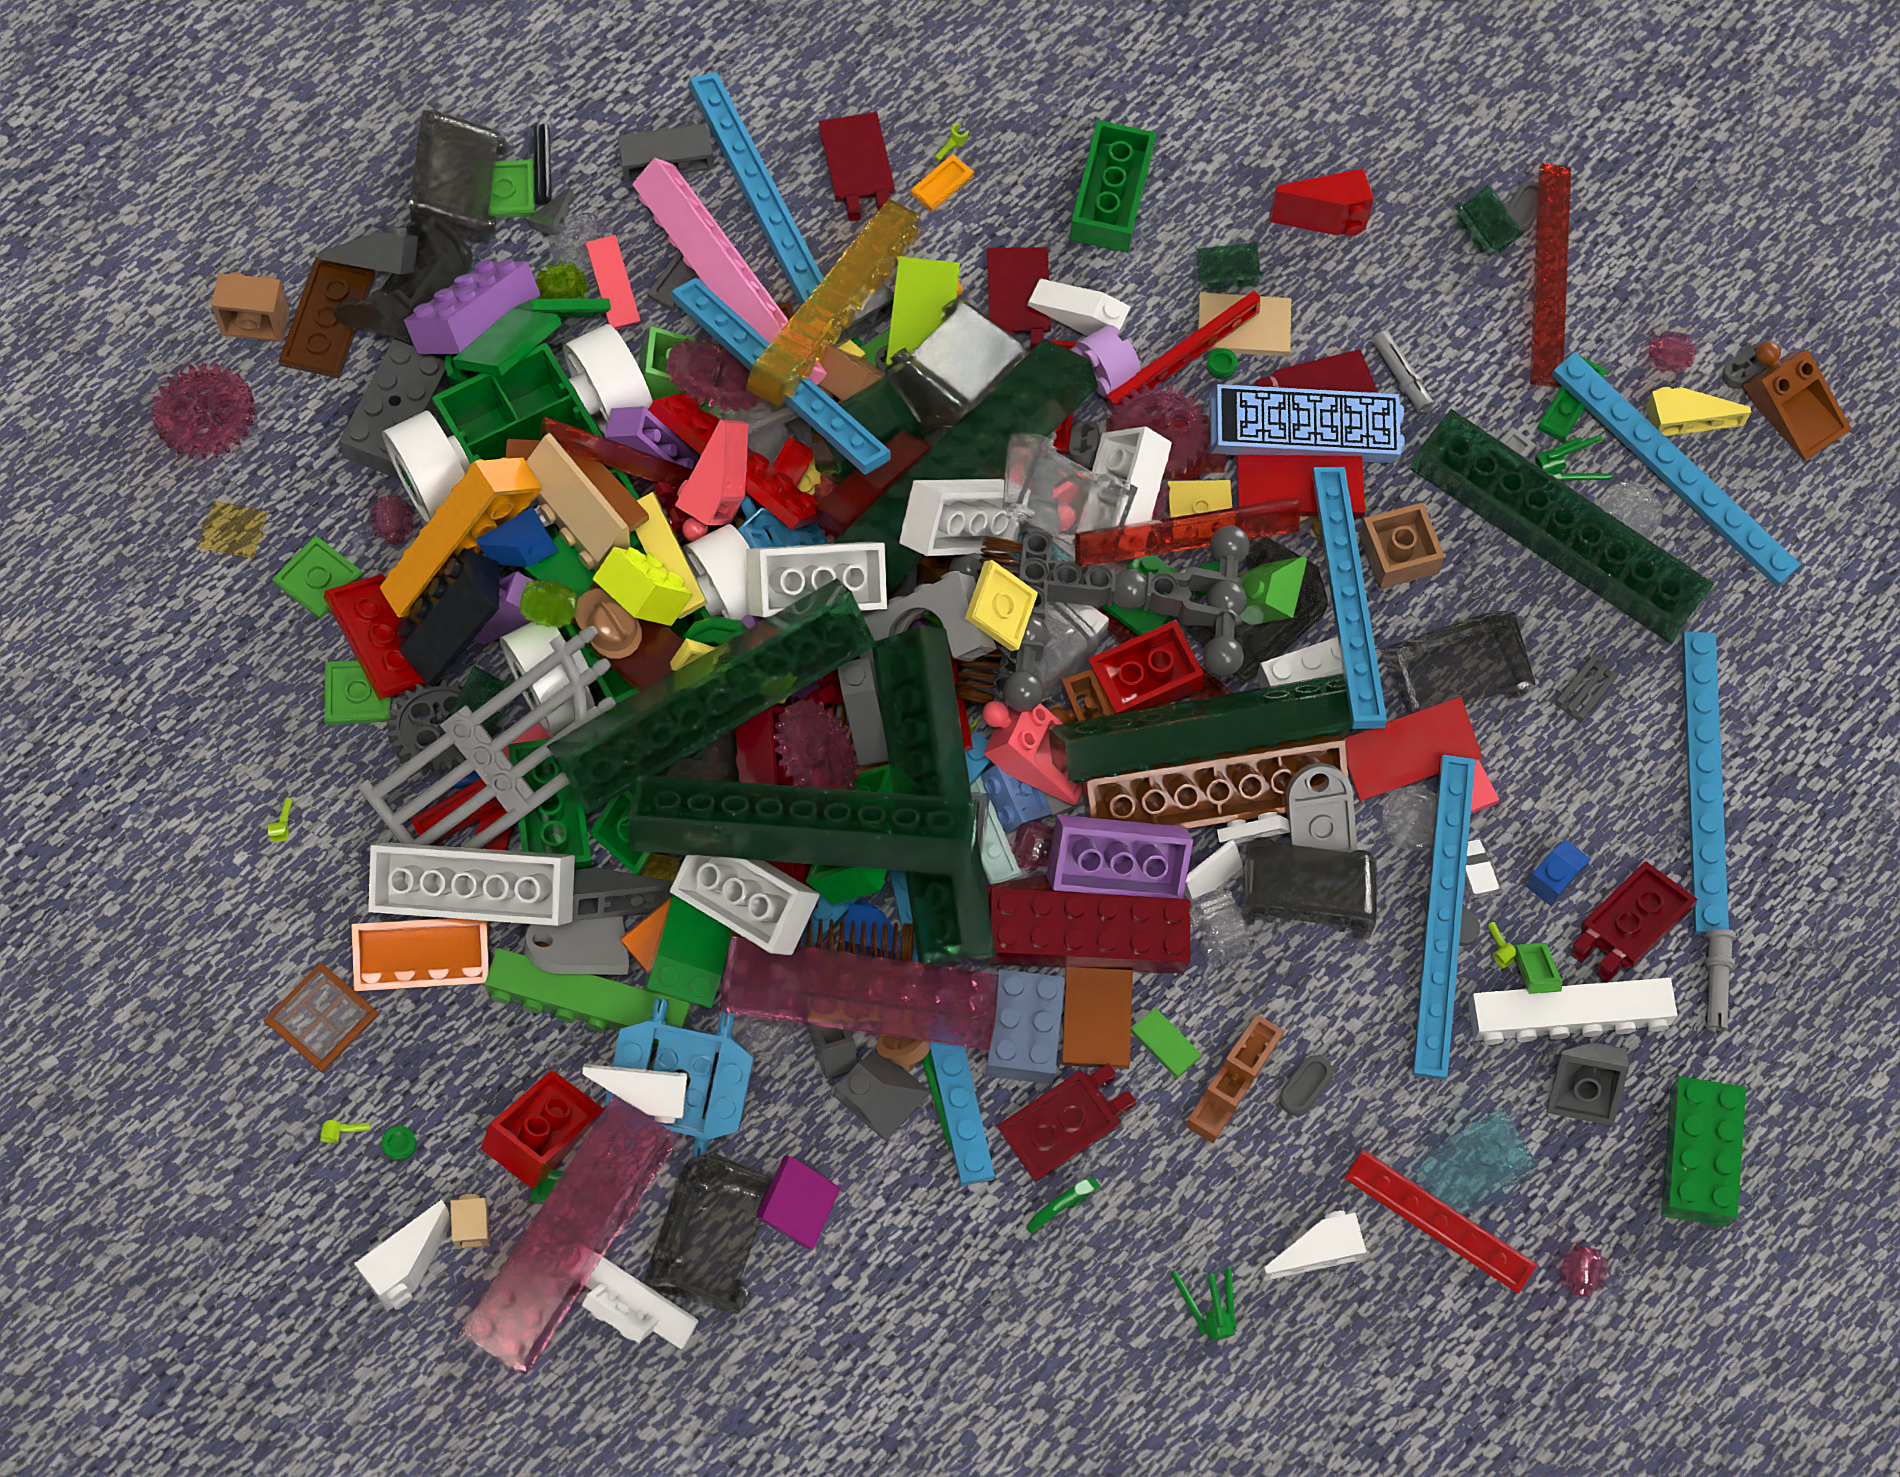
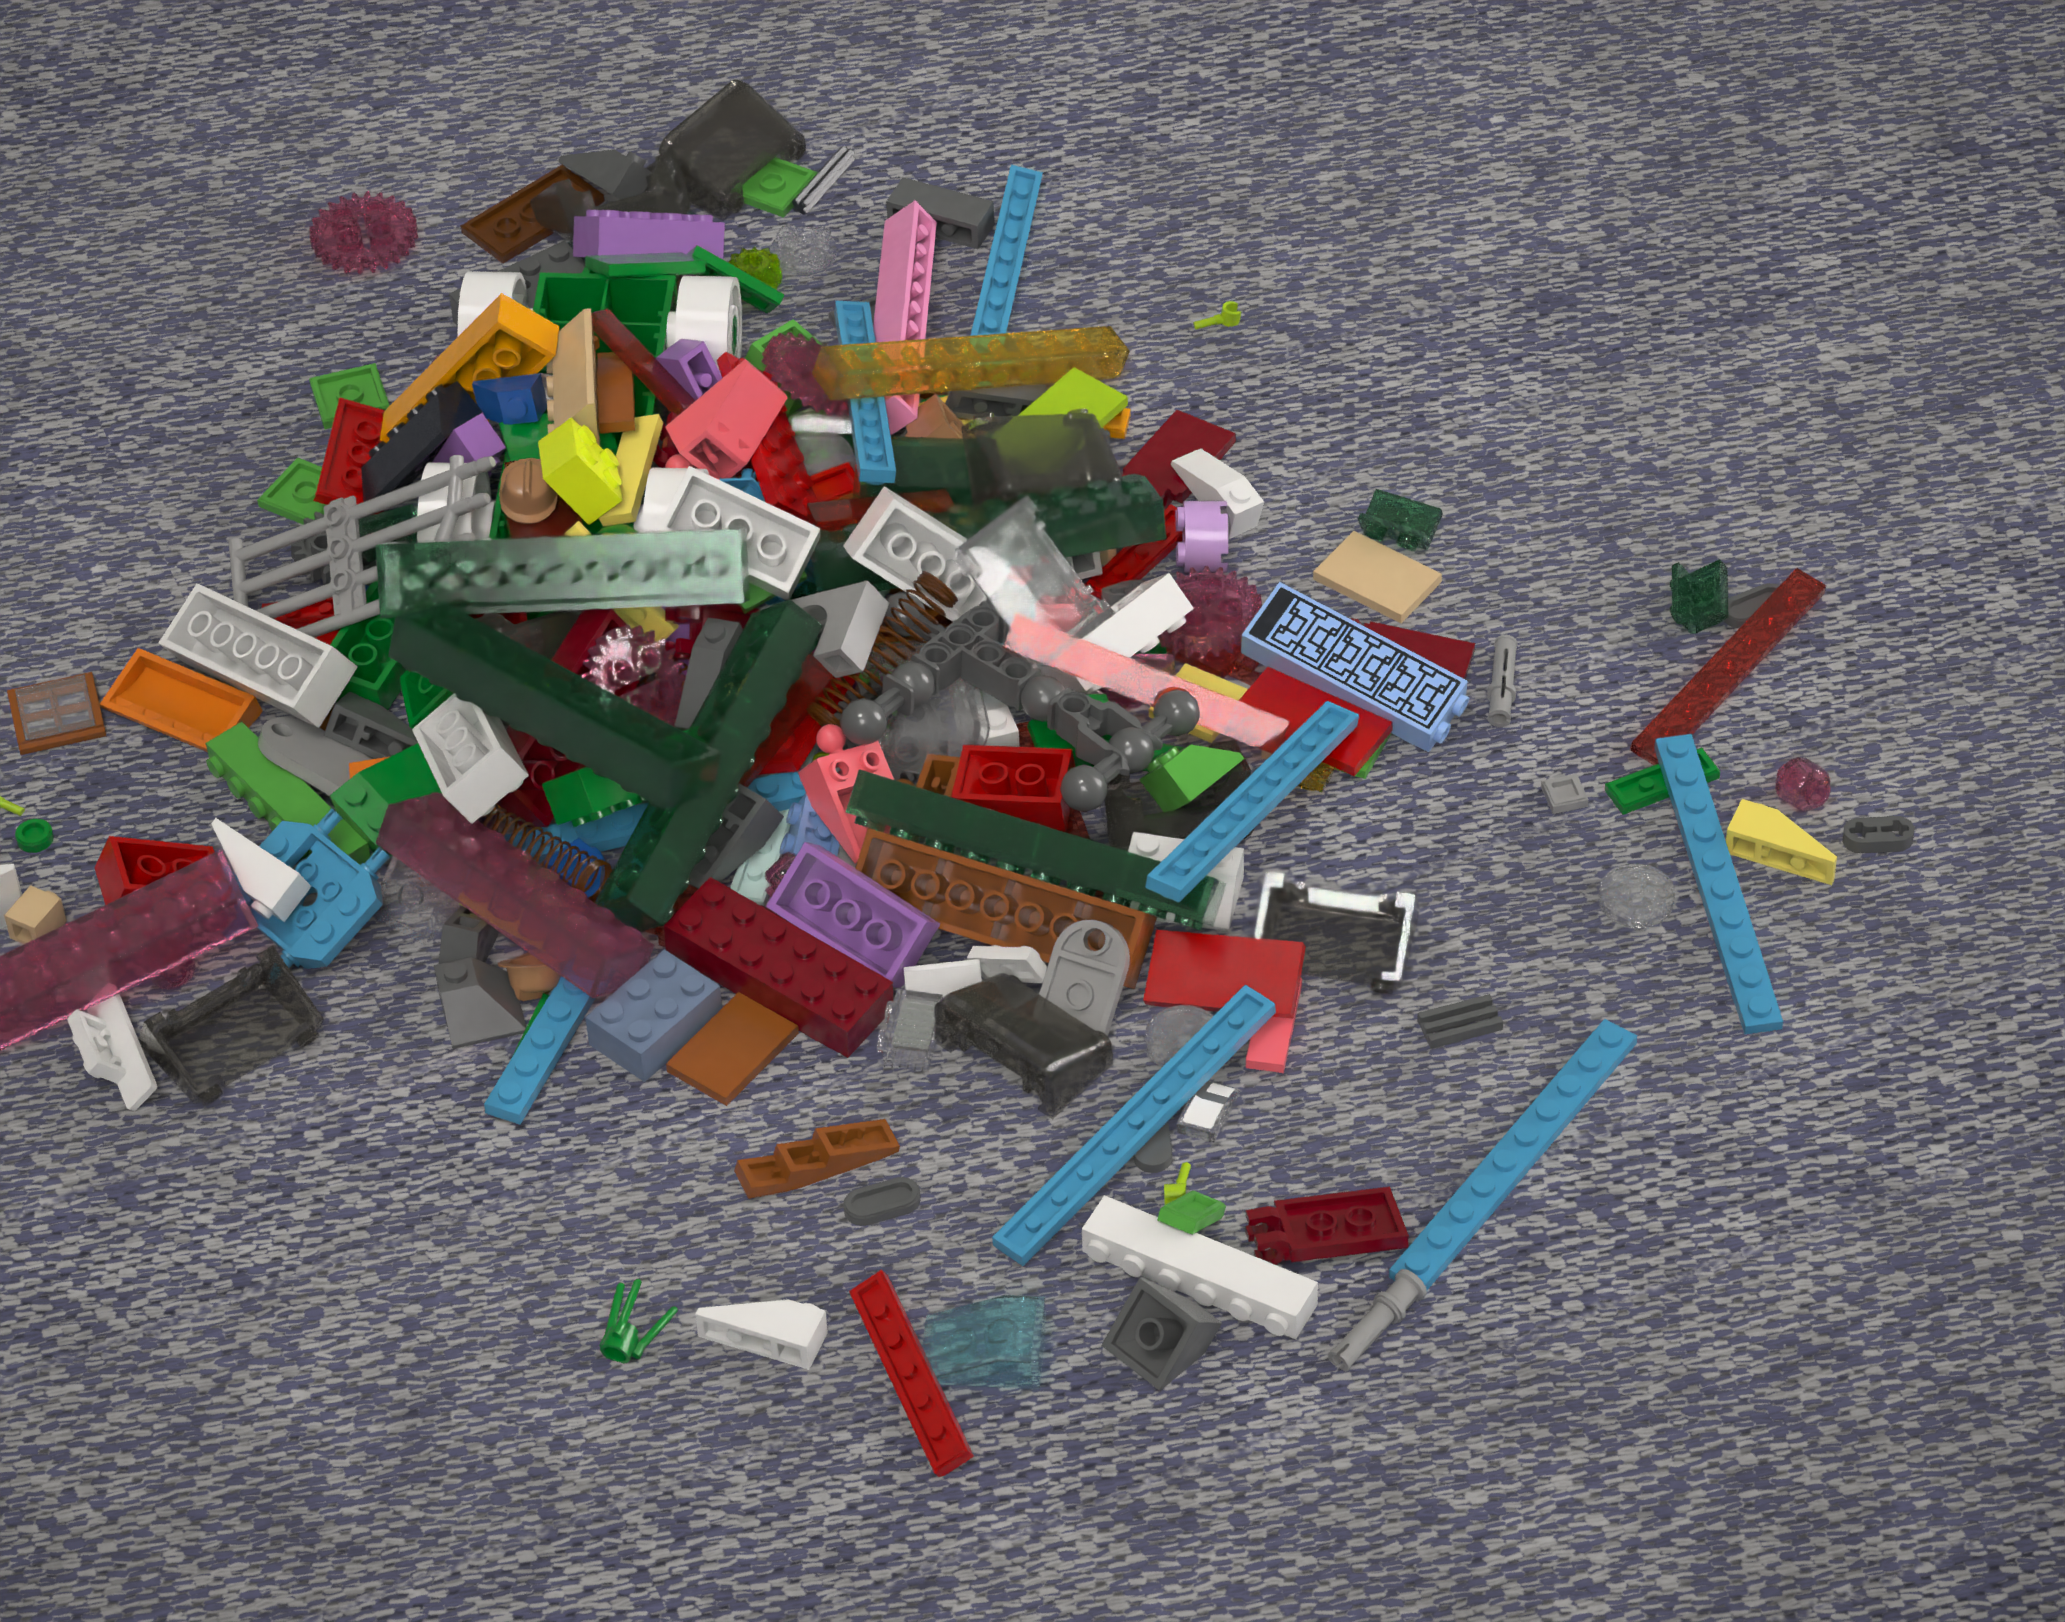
camera: 40 degrees right, 20 degrees down
(233, 529) = (312, 332): clear yellow piece -> none
(250, 307) = (466, 168): medium nougat brick -> none
(279, 830) = (150, 561): lime hand -> none
(548, 603) = (484, 439): clear neon green gear -> none
(552, 214) = (801, 216): dark grey tile -> none
(613, 281) = (803, 285): coral tile -> none
(798, 1202) = (324, 1042): magenta tile -> none
(857, 161) = (1116, 292): dark red tile -> none
(942, 183) = (1181, 345): light orange tile -> none
(1001, 605) = (889, 630): light yellow plate -> none
(1064, 1122) = (629, 1111): dark red tile -> none
(1071, 1198) = (577, 1167): green piece -> none
(1112, 186) = (1338, 407): green brick -> none
(1166, 1043) = (778, 1100): bright green tile -> none
(1188, 349) = (1304, 560): red tile -> none
(1221, 363) = (1328, 595): green tile -> none
(1325, 204) = (1535, 504): red slope -> none
(1401, 545) = (1366, 810): medium nougat brick -> none
(1554, 460) = (1591, 818): green plant -> none
(1557, 872) = (1288, 1148): blue slope -> none
(1561, 526) = (1548, 871): clear green brick -> none
(1584, 1271) = (1014, 1484): clear pink head -> none
(1703, 1151) = (1225, 1448): green brick -> none
(1805, 406) = (1902, 887): dark orange slope -> none

